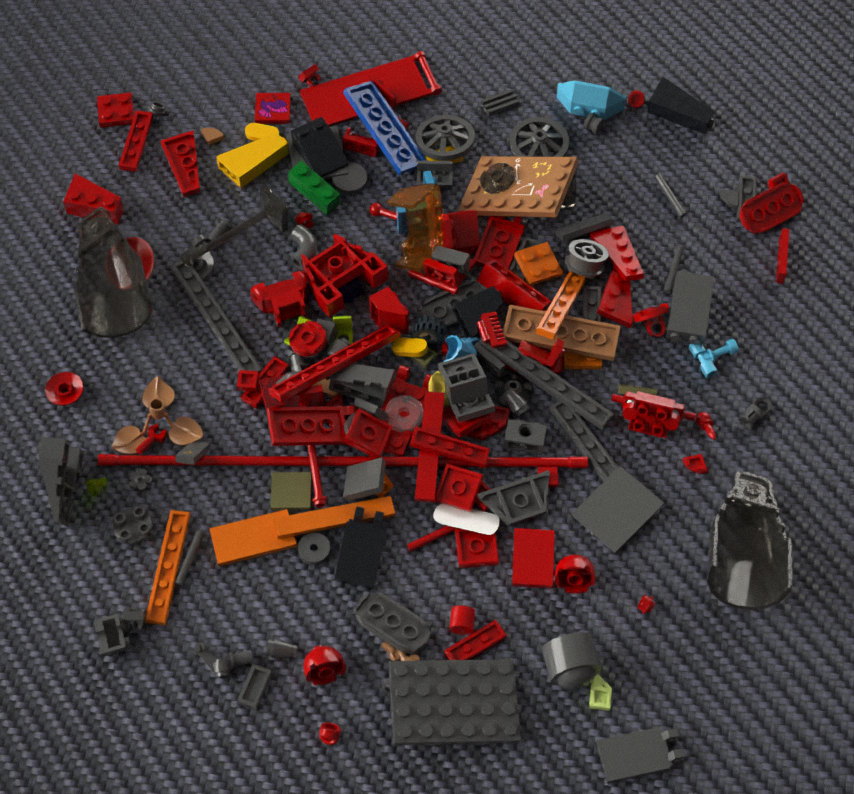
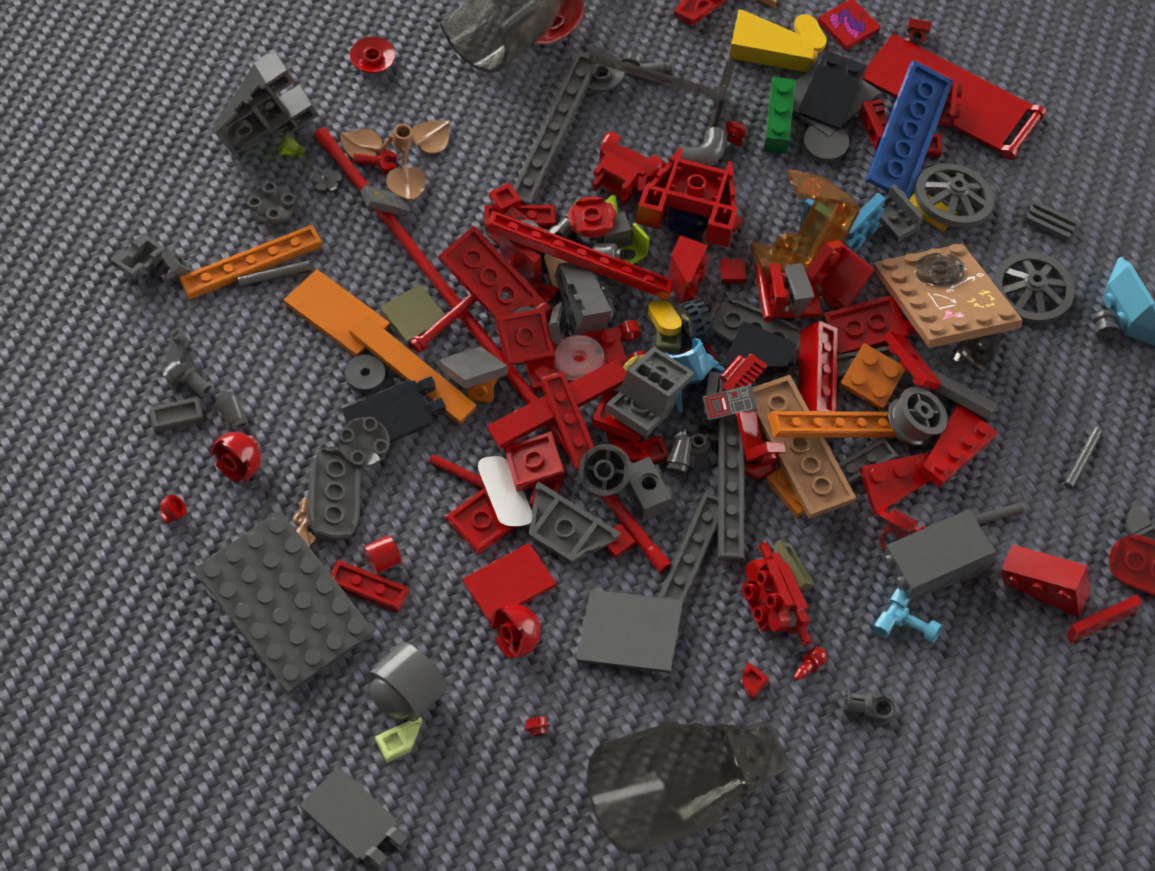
camera: 50 degrees right, 0 degrees up
(371, 579) = (364, 442): none -> dark grey dish
(403, 288) = (732, 271): none -> red tile
(505, 447) = (595, 469): none -> dark grey cylinder
(507, 349) = (729, 402): none -> dark grey tile
(548, 235) = (911, 361): none -> red tile
(739, 265) = (1047, 578): none -> red wedge

